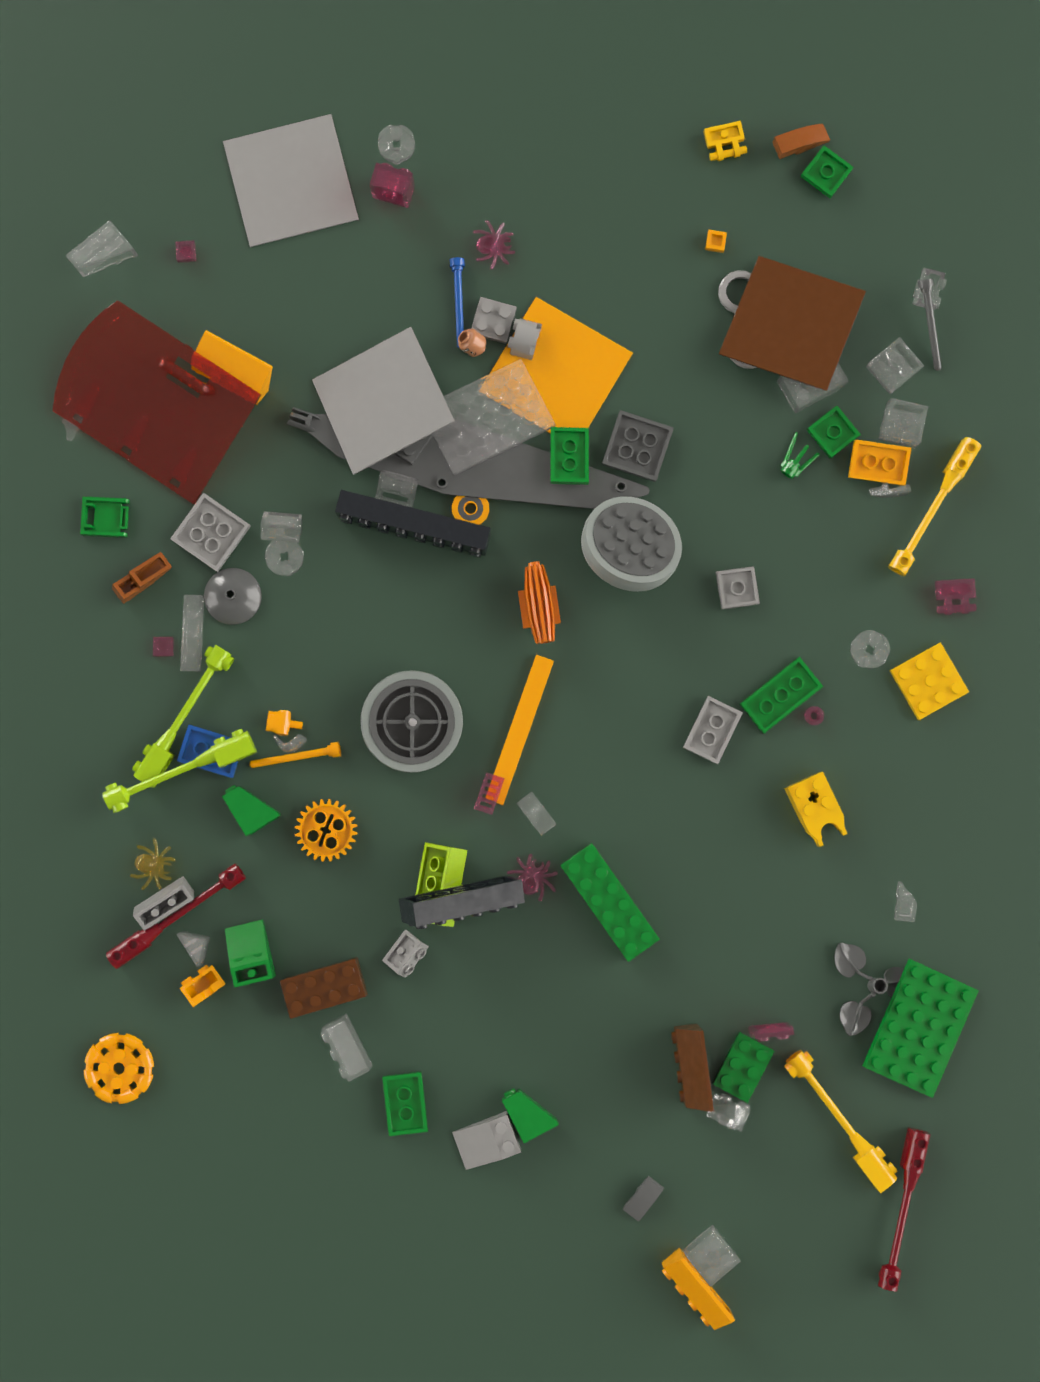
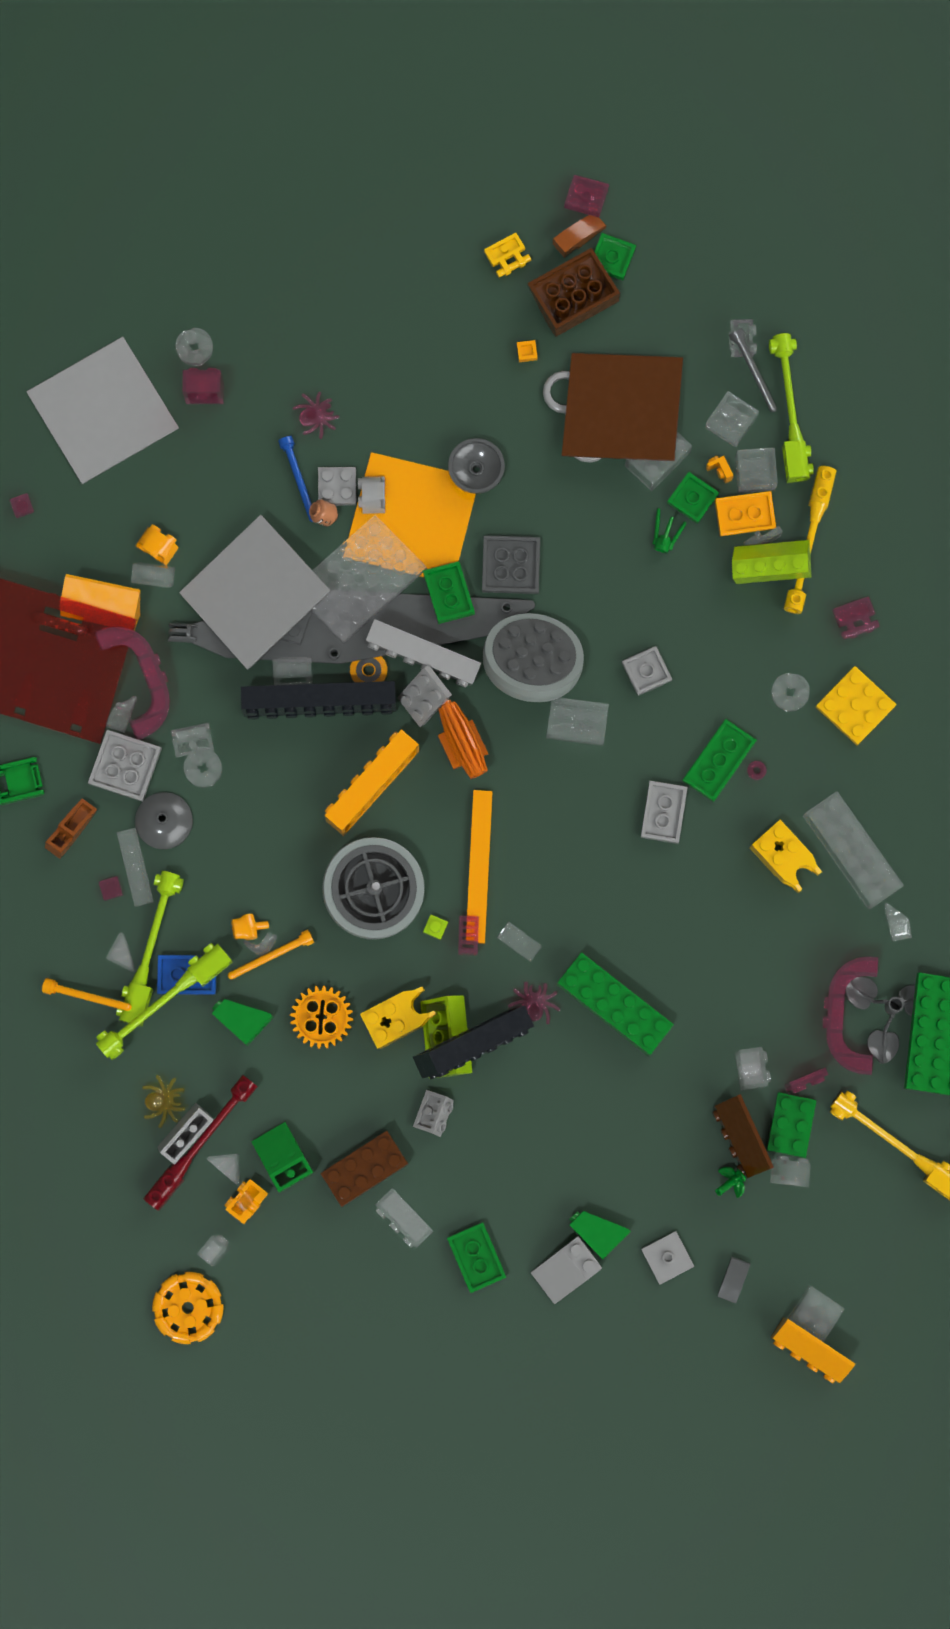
camera: 15 degrees left, 5 degrees down
(78, 724) = (51, 986): none -> light orange piece
(154, 713) = (121, 954): none -> clear slope
(158, 1023) = (214, 1250): none -> clear brick
(222, 482) = (121, 715): none -> clear slope
(248, 496) = (155, 679): none -> clear pink arch
(290, 355) = (152, 574): none -> clear brick
(304, 327) = (157, 544): none -> light orange cylinder
(402, 853) = (402, 1015): none -> yellow brick
(440, 619) = (372, 782): none -> light orange brick
(460, 775) = (435, 927): none -> lime plate
(515, 550) = (424, 696): none -> light grey plate
(526, 507) = (422, 652): none -> light grey brick
(586, 1158) = (667, 1257): none -> light grey plate
(637, 328) = (474, 454): none -> dark grey dish
(656, 617) = (577, 721): none -> clear brick
(675, 1105) = (735, 1180): none -> green plant
(722, 1004) = (752, 1068): none -> clear brick
(779, 195) = (574, 292): none -> reddish brown slope
(820, 104) = (586, 196): none -> clear pink plate
(845, 938) = (833, 1022): none -> clear pink arch
(871, 413) = (723, 471): none -> light orange bracket
(884, 822) = (853, 850): none -> clear brick
(891, 517) = (771, 562): none -> lime slope
(947, 415) = (795, 450): none -> lime bar

